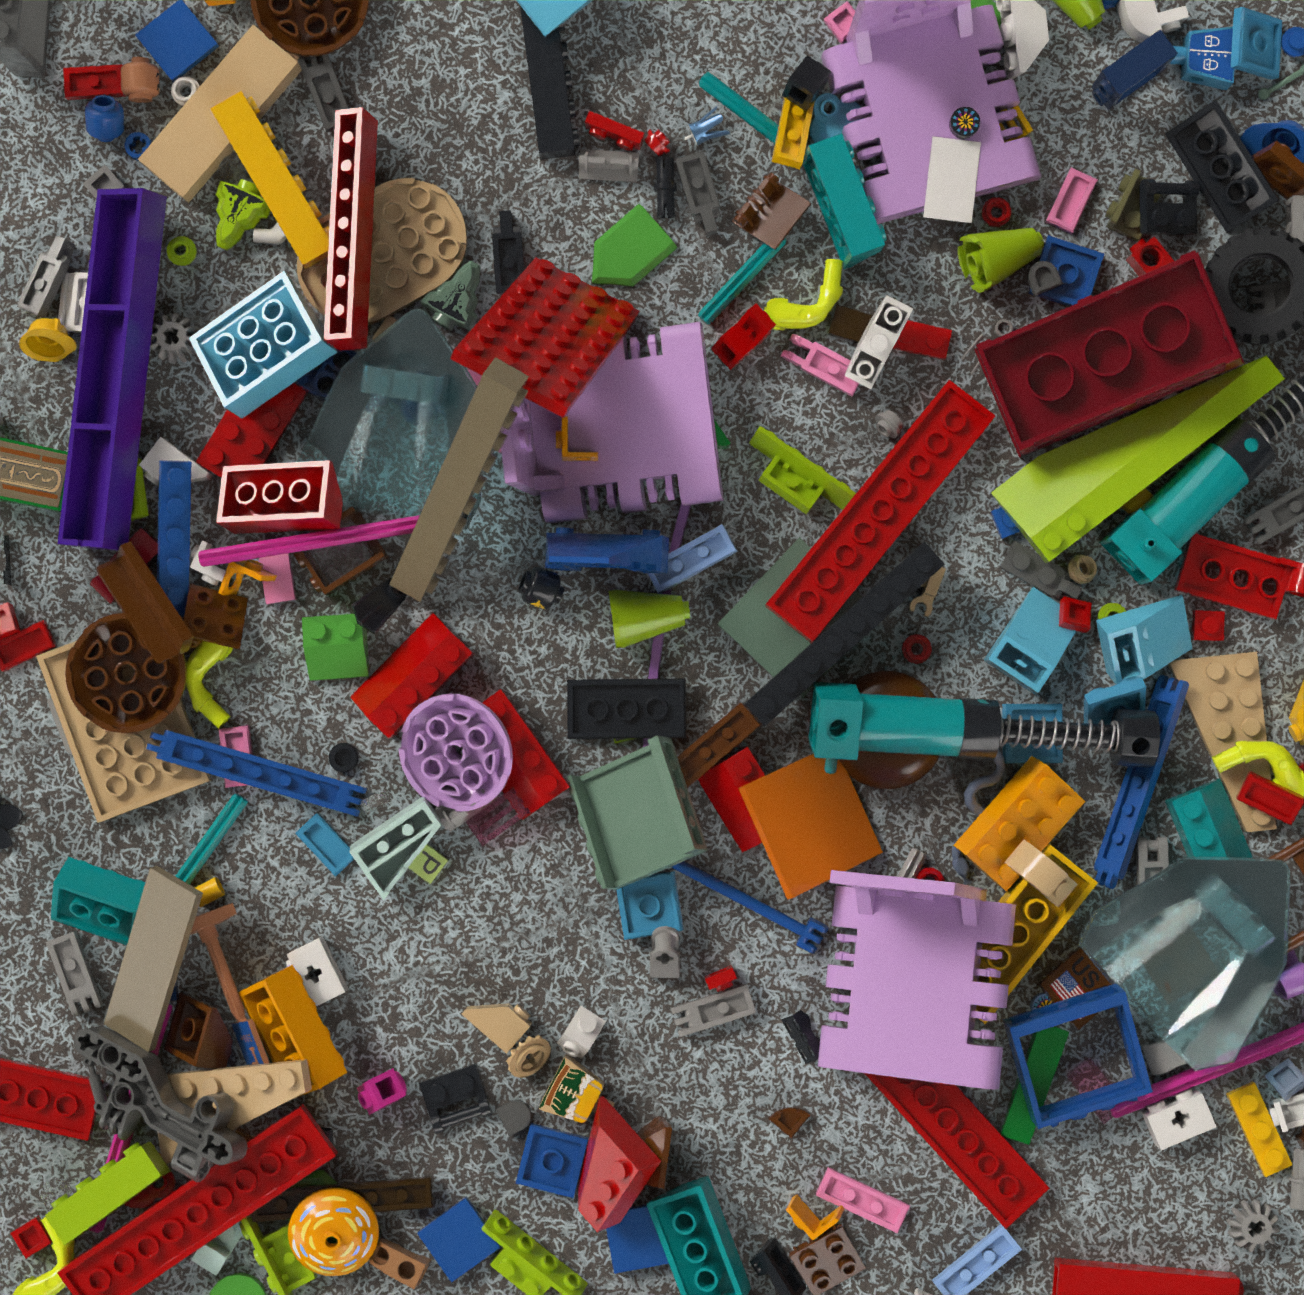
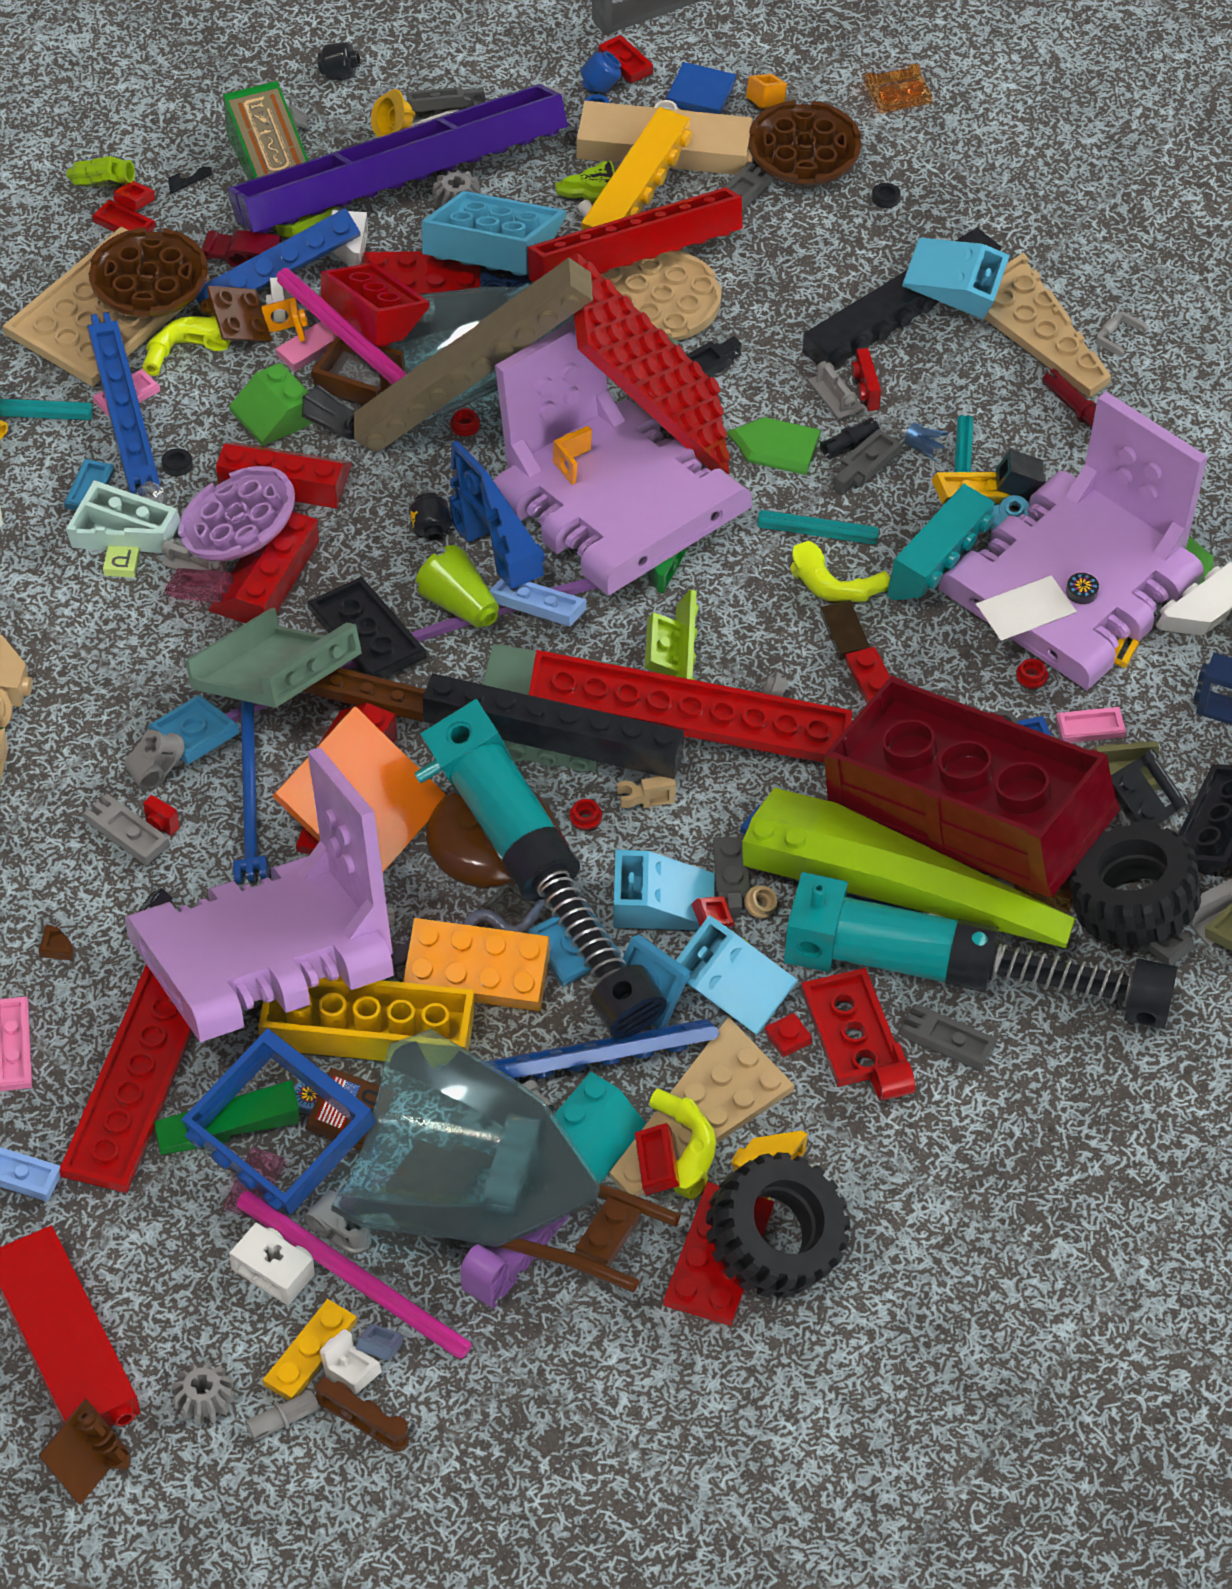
camera: 50 degrees right, 35 degrees down
(140, 80) = (650, 80): nougat head -> none
(145, 604) = (213, 252): reddish brown panel -> none
(185, 259) = (533, 168): lime plate -> none
(581, 1033) = (36, 739): white bracket -> none
(657, 142) = (883, 412): red plate -> none
(743, 336) = (763, 547): red brick -> none
(771, 211) = (887, 513): reddish brown hinge -> none
(822, 364) = (790, 621): bright pink hinge -> none
(878, 341) = (839, 630): white slope -> none
(997, 255) = (994, 684): lime cone -> none
(1041, 872) = (438, 984): tan brick -> none

